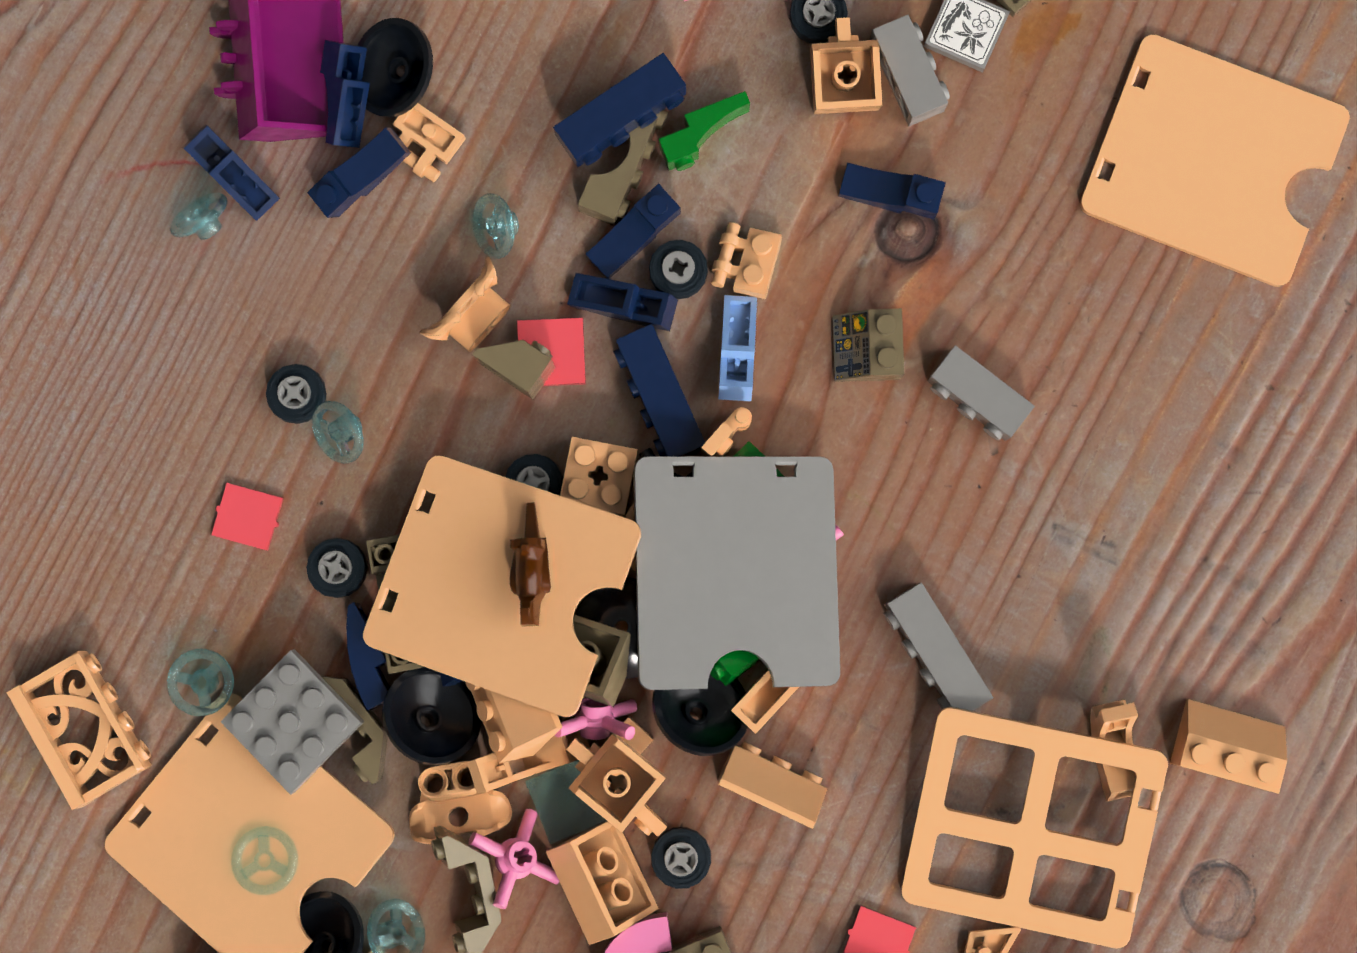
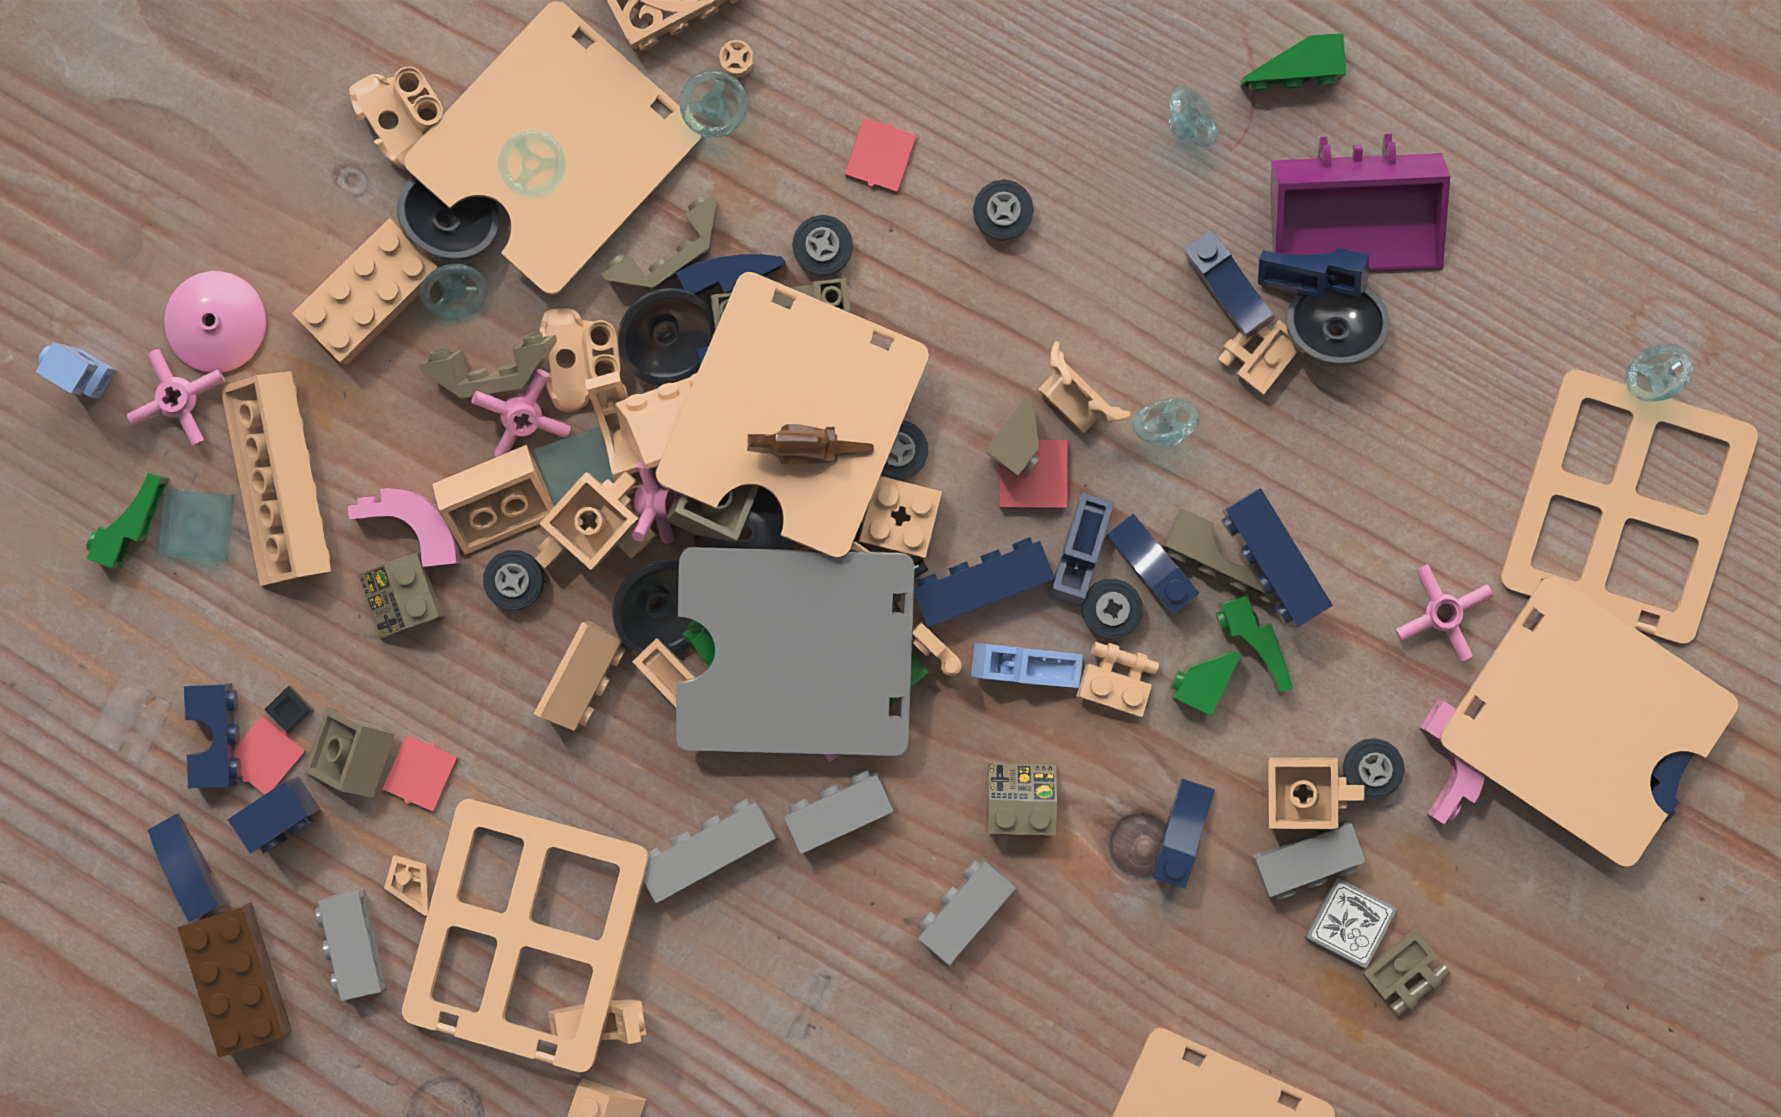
camera: 90 degrees right, 5 degrees up
(141, 105) = (1310, 60): none -> green slope
(150, 658) = (733, 54): none -> light nougat wheel
(231, 172) = (1237, 150): dark blue slope -> none
(292, 721) = (668, 196): light grey plate -> none
(341, 431) = (962, 255): clear light blue piece -> none
(744, 176) = (1204, 681): none -> green slope
(891, 523) = (838, 811): none -> light grey brick

